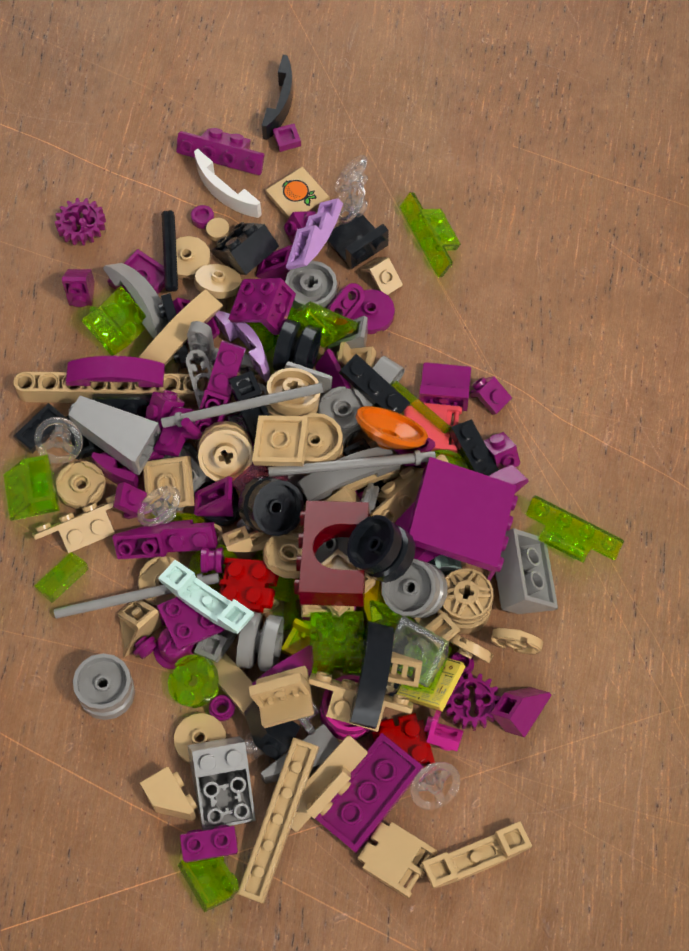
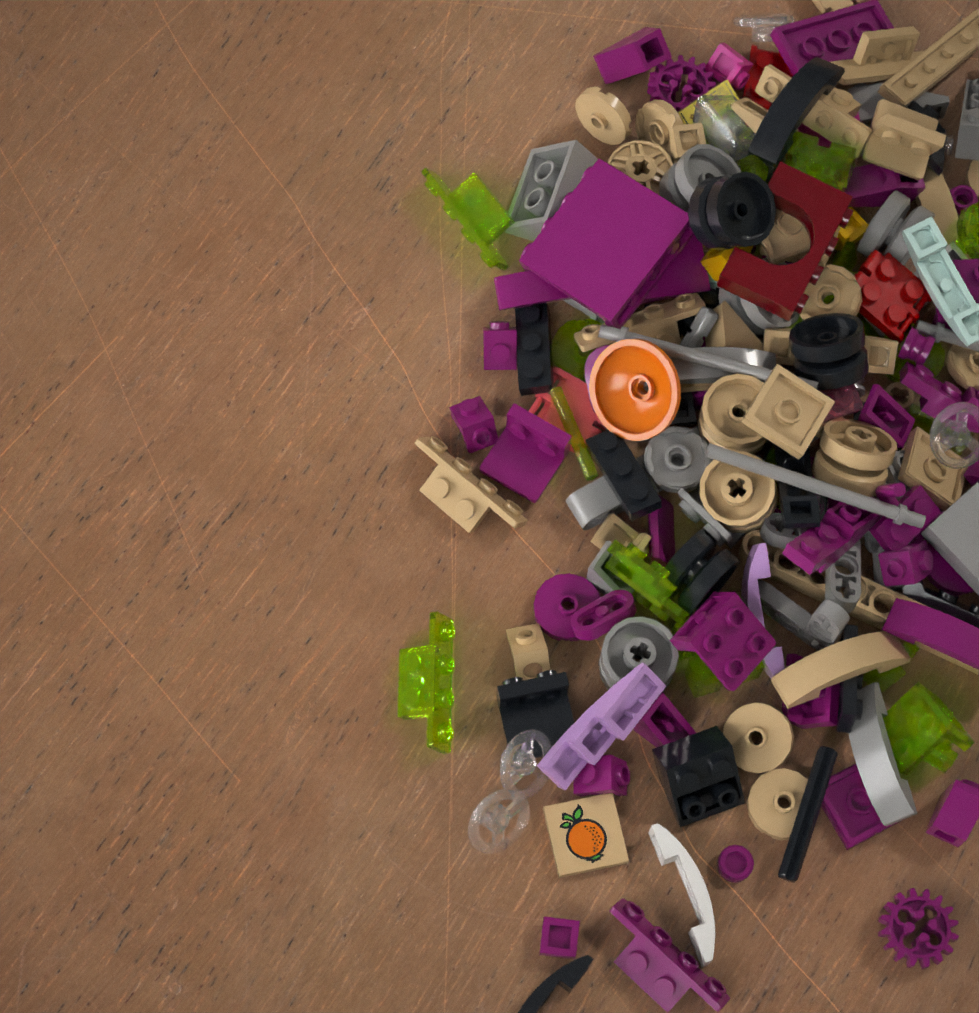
camera: 160 degrees left, 5 degrees up
(217, 229) = (722, 830): tan tile -> none
(332, 321) = (633, 559): none -> clear neon green plate
(472, 350) = (461, 492): none -> tan bracket

